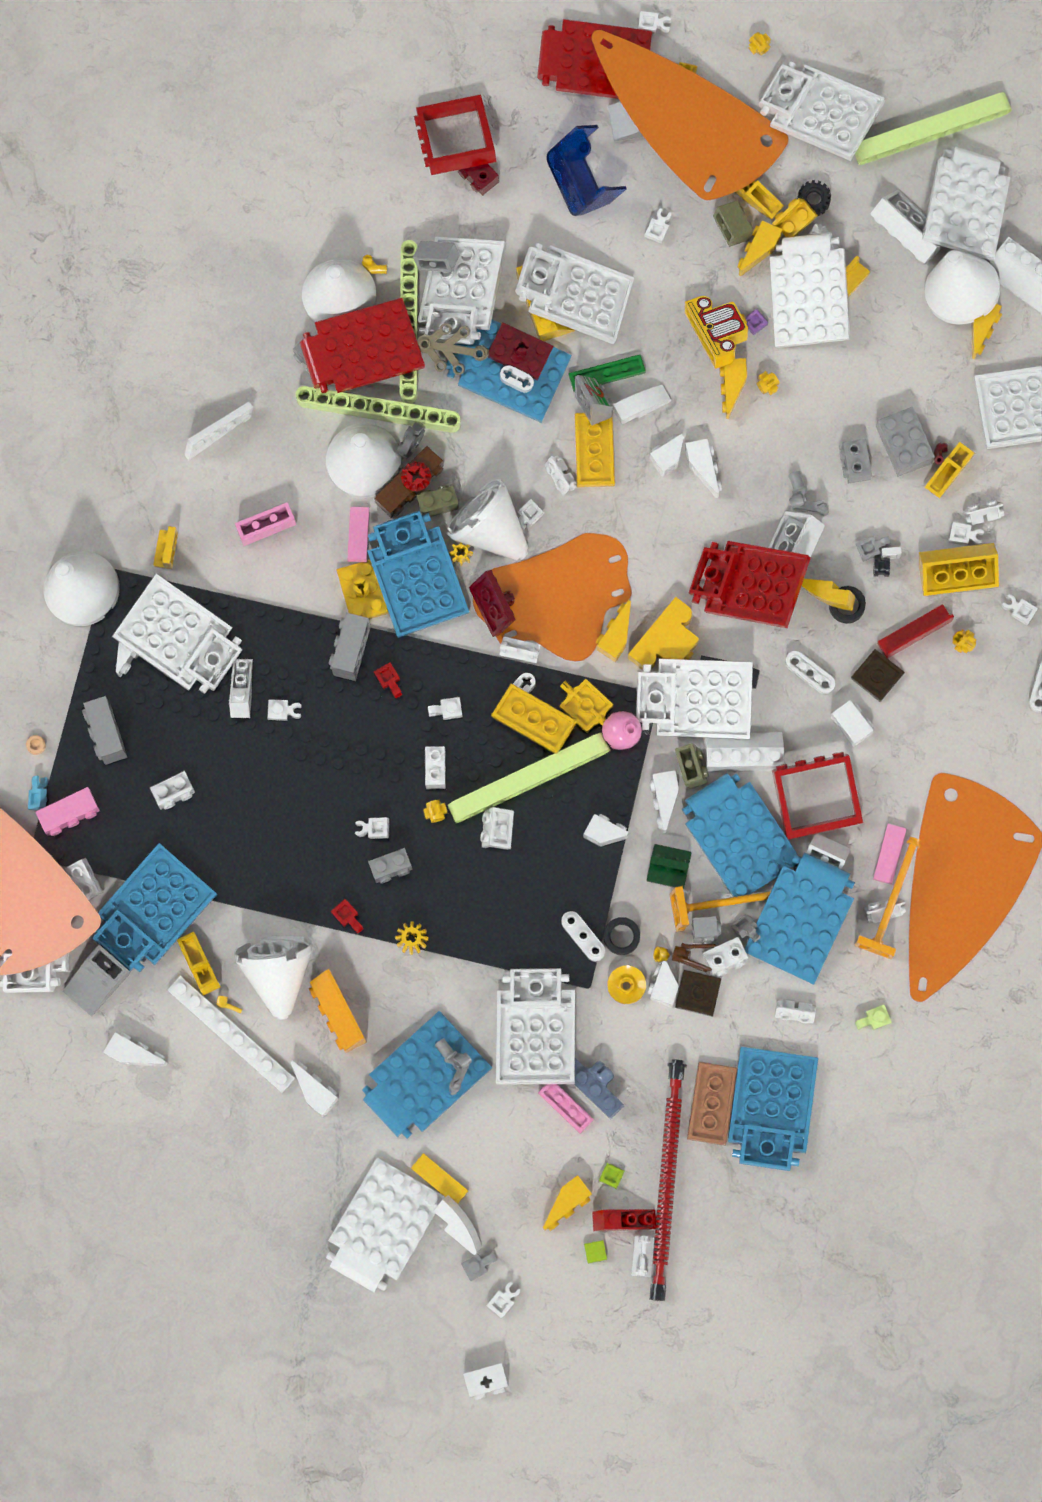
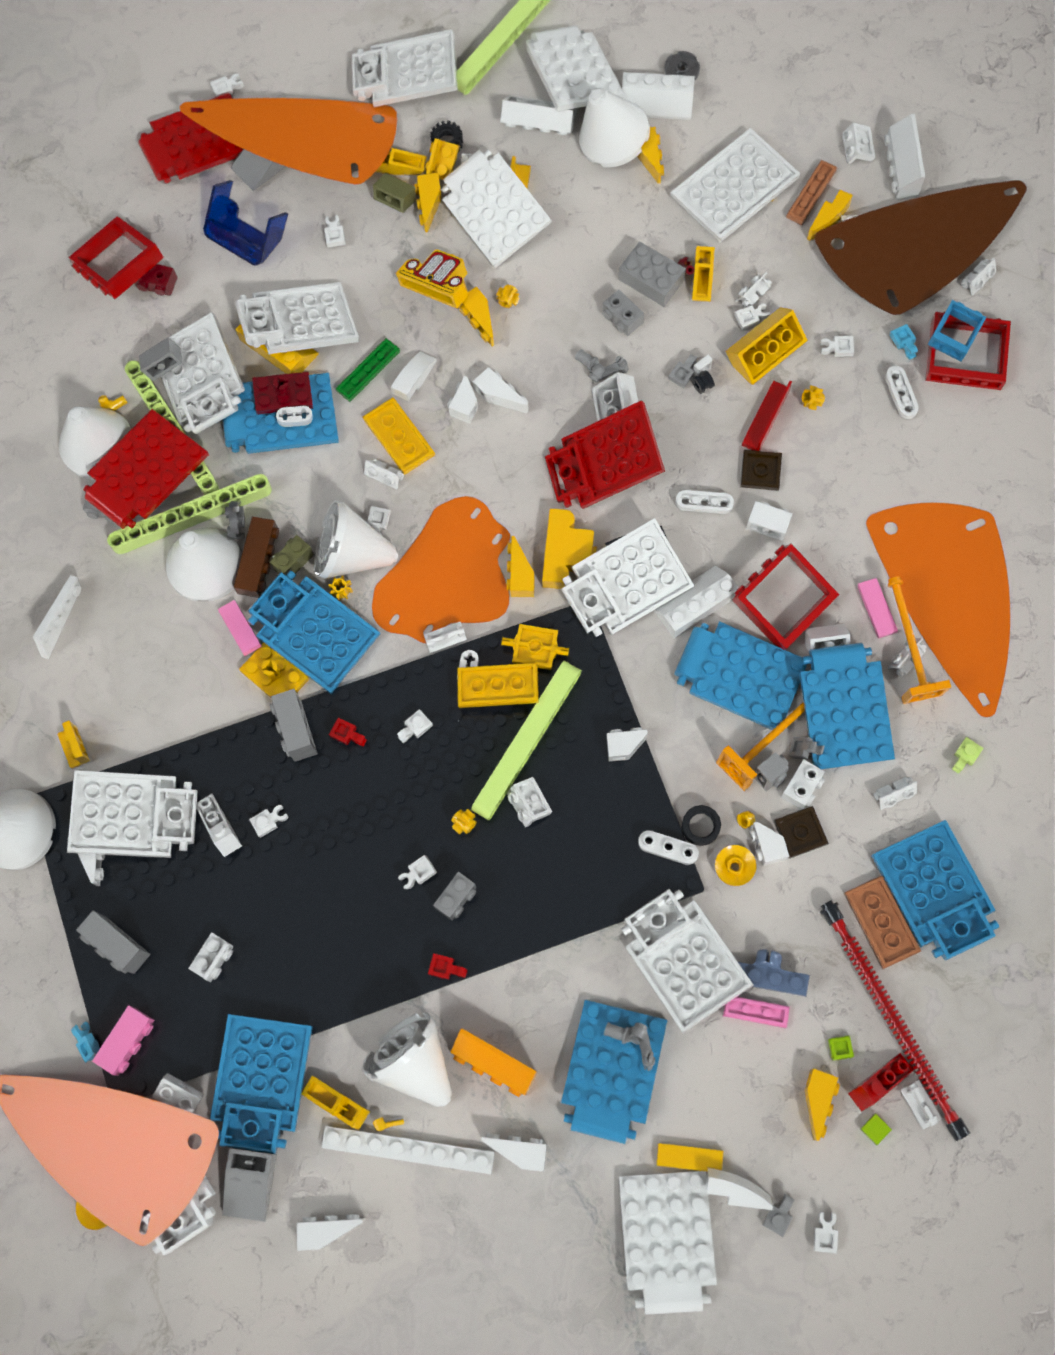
camera: 30 degrees left, 5 degrees down
(35, 745) = (57, 998): light nougat tile -> none
(265, 524) = (150, 669): bright pink brick -> none
(409, 944) = (515, 943): yellow gear -> none
(418, 484) = (265, 551): red gear -> none
(435, 768) = (438, 783): white brick -> none
(449, 348) = (218, 424): dark tan plant -> none
(493, 603) = (396, 611): dark red plate -> none
(493, 1372) = (851, 1329): white brick -> none
(592, 399) = (370, 395): light grey slope -> none
(622, 730) = (581, 647): bright pink cylinder -> none
(666, 793) = (653, 676): white slope -> none
(668, 866) = (700, 738): dark green bracket -> none
(682, 955) = (766, 807): reddish brown plant -> none
(691, 765) = (657, 637): olive brick -> none
(755, 322) = (467, 256): medium lavender tile -> none
(759, 43) = (323, 51): yellow gear -> none
(829, 593) = (675, 426): yellow slope -> none
(857, 615) = (698, 415): black tyre -> none

